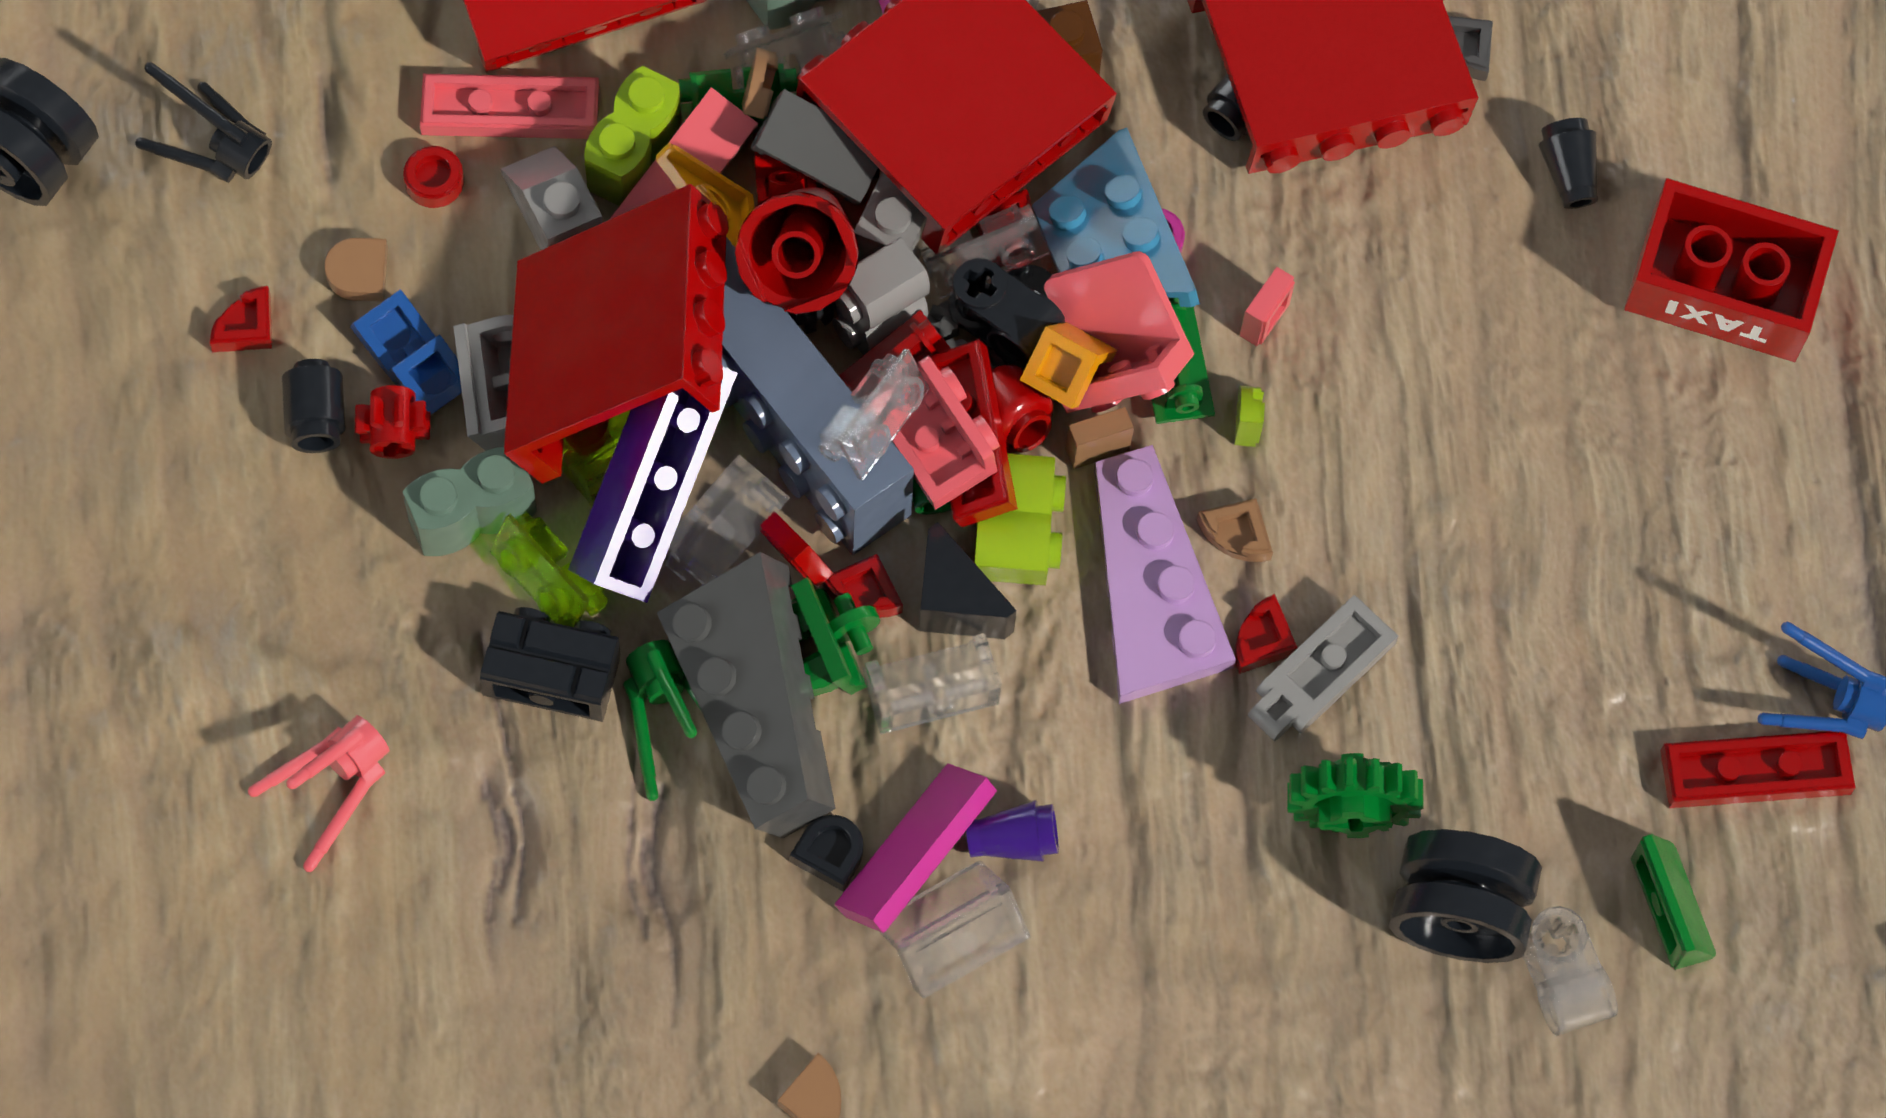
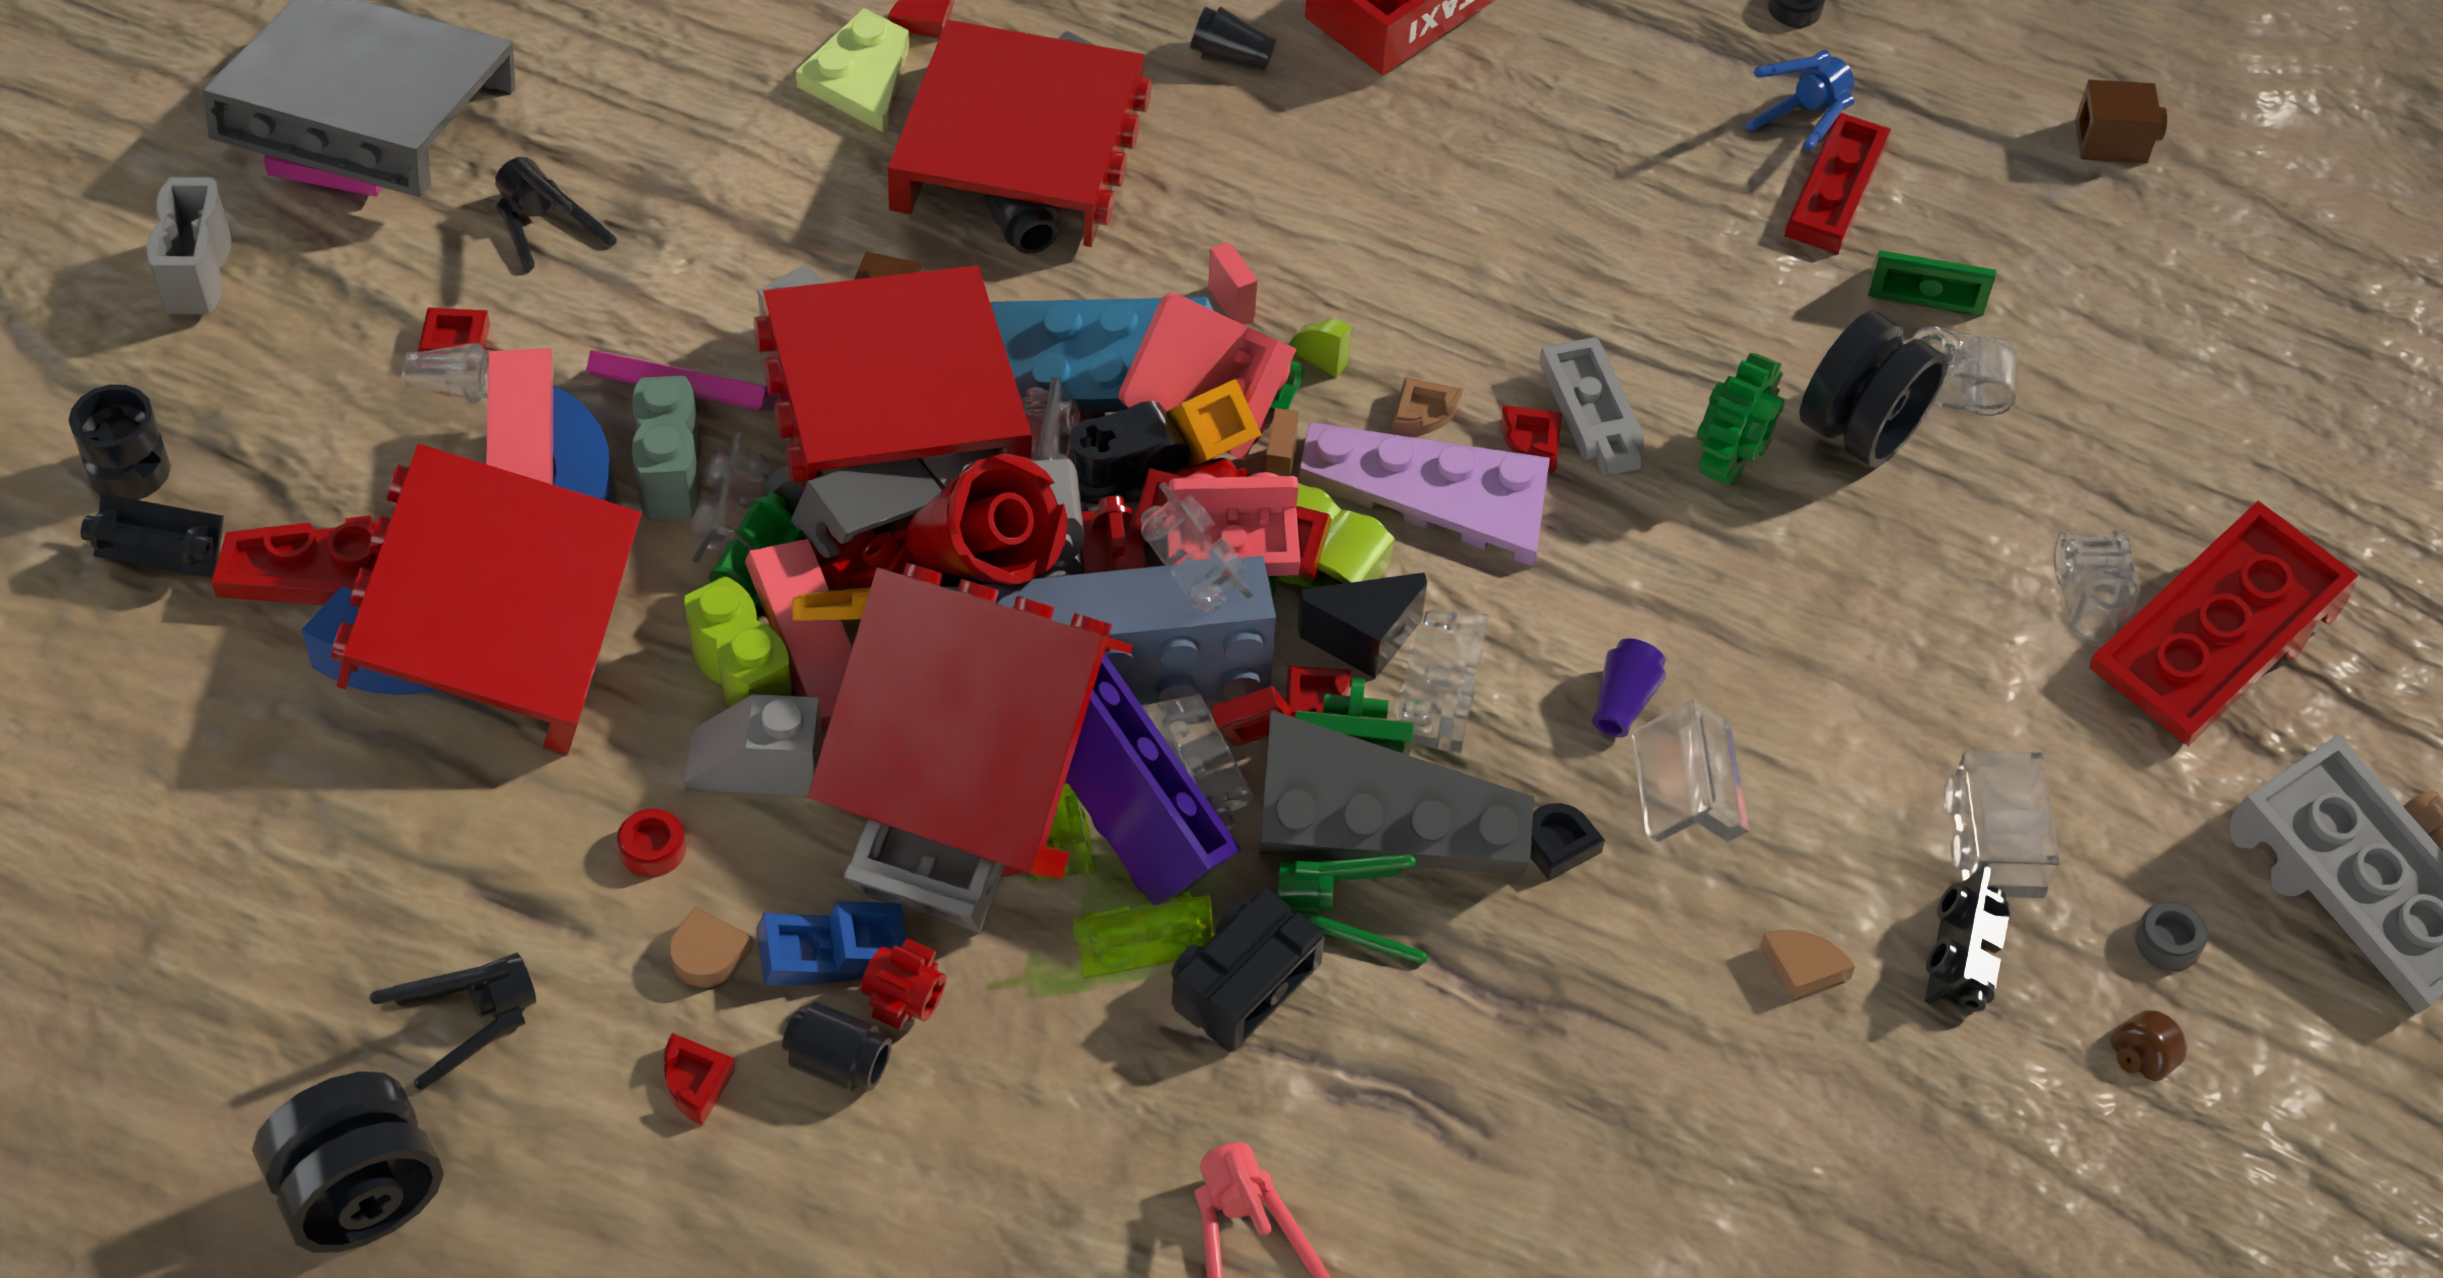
camera: 60 degrees left, 15 degrees down
(459, 504) = (1033, 956): sand green brick -> none
(509, 106) = (622, 747): coral tile -> none
(758, 88) = (770, 519): medium nougat tile -> none
(915, 847) = (1601, 766): dark pink tile -> none

